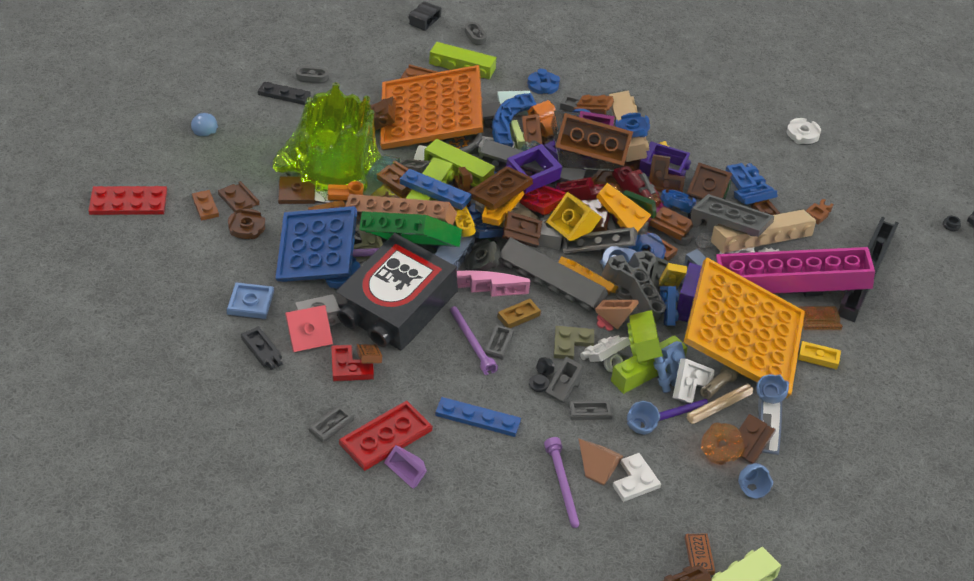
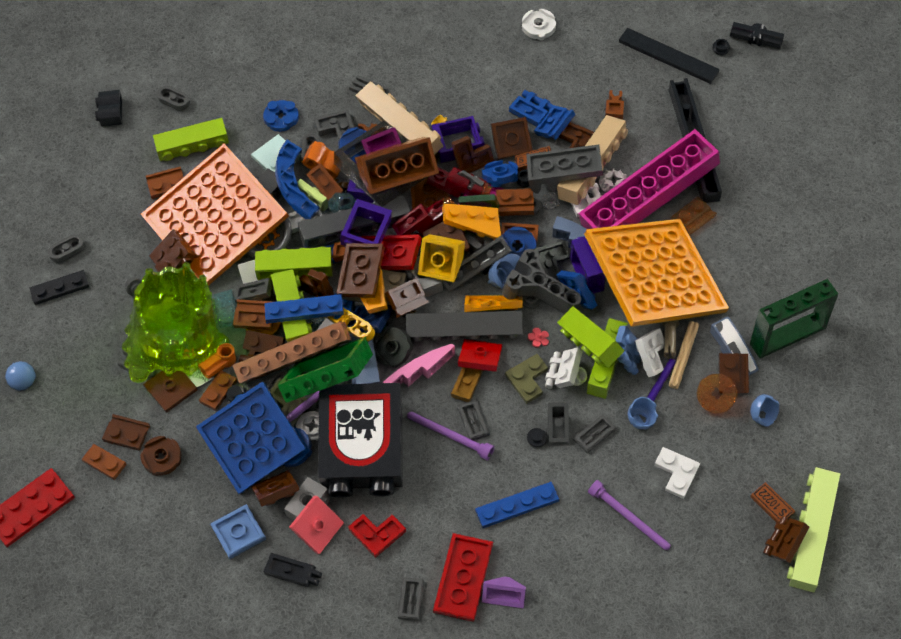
camera: 30 degrees left, 15 degrees up
(309, 290) = (275, 488): none -> reddish brown plate
(369, 353) = (386, 511): dark orange tile -> none
(545, 302) = (480, 355): none -> red plate
(545, 366) = (530, 419): black plate -> none
(595, 104) = (353, 116): dark orange plate -> none
(598, 461) = (641, 476): nougat slope -> none
(616, 310) = (545, 325): nougat slope -> none
(635, 123) = (410, 115): blue plate -> none
(673, 275) = (565, 260): yellow plate -> none
(772, 388) = (723, 319): medium blue hair -> none
(819, 355) = (721, 254): yellow plate -> none
(843, 402) = (766, 341): none -> dark green window
(899, 206) = (669, 55): none -> black tile

